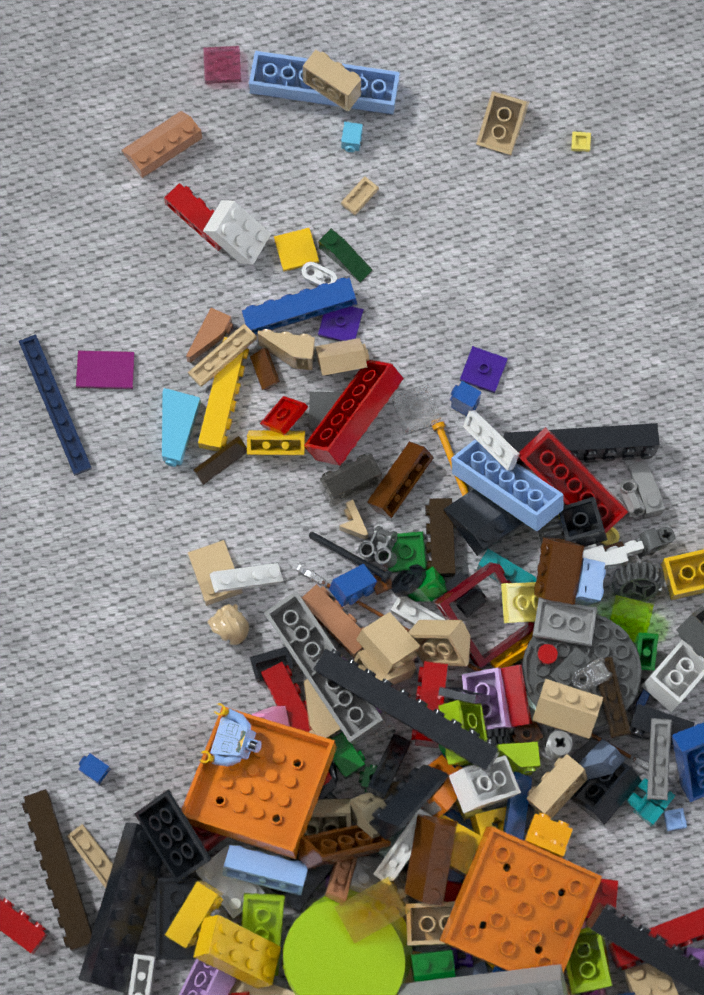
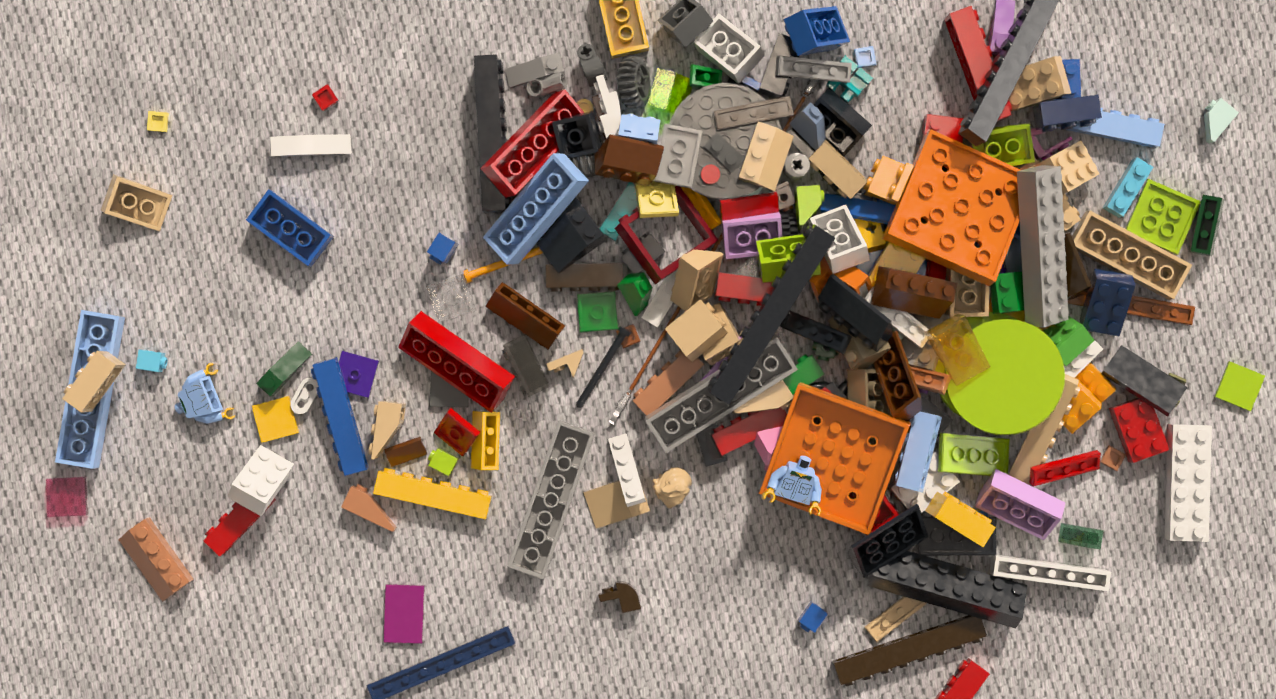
camera: 90 degrees left, 15 degrees up
(122, 580) = (625, 592): none -> dark brown brick
(178, 420) = (461, 539): medium azure slope -> none
(217, 506) = (551, 499): none -> light grey brick
(220, 460) = (502, 496): dark brown tile -> none
(222, 355) = (393, 494): tan tile -> none
(237, 951) = (998, 478): yellow brick -> none
(255, 403) = (442, 461): none -> lime brick
(316, 179) = (200, 399): none -> light blue torso
(342, 356) = (395, 373): tan brick -> none
(353, 585) = (634, 364): blue brick -> none
(359, 196) = (217, 353): tan plate -> none
(380, 547) = (594, 336): dark grey piece -> none
(408, 581) = (630, 309): black tile -> none
(464, 695) = (751, 256): black tile -> none
(482, 259) = (289, 228): none -> blue brick
(483, 369) = (407, 229): dark purple plate -> none
(491, 440) = (490, 223): white plate -> none
(563, 278) = (310, 145): none -> white slope
(595, 672) = (733, 128): clear piece -> none
(610, 291) = (325, 97): none -> red plate

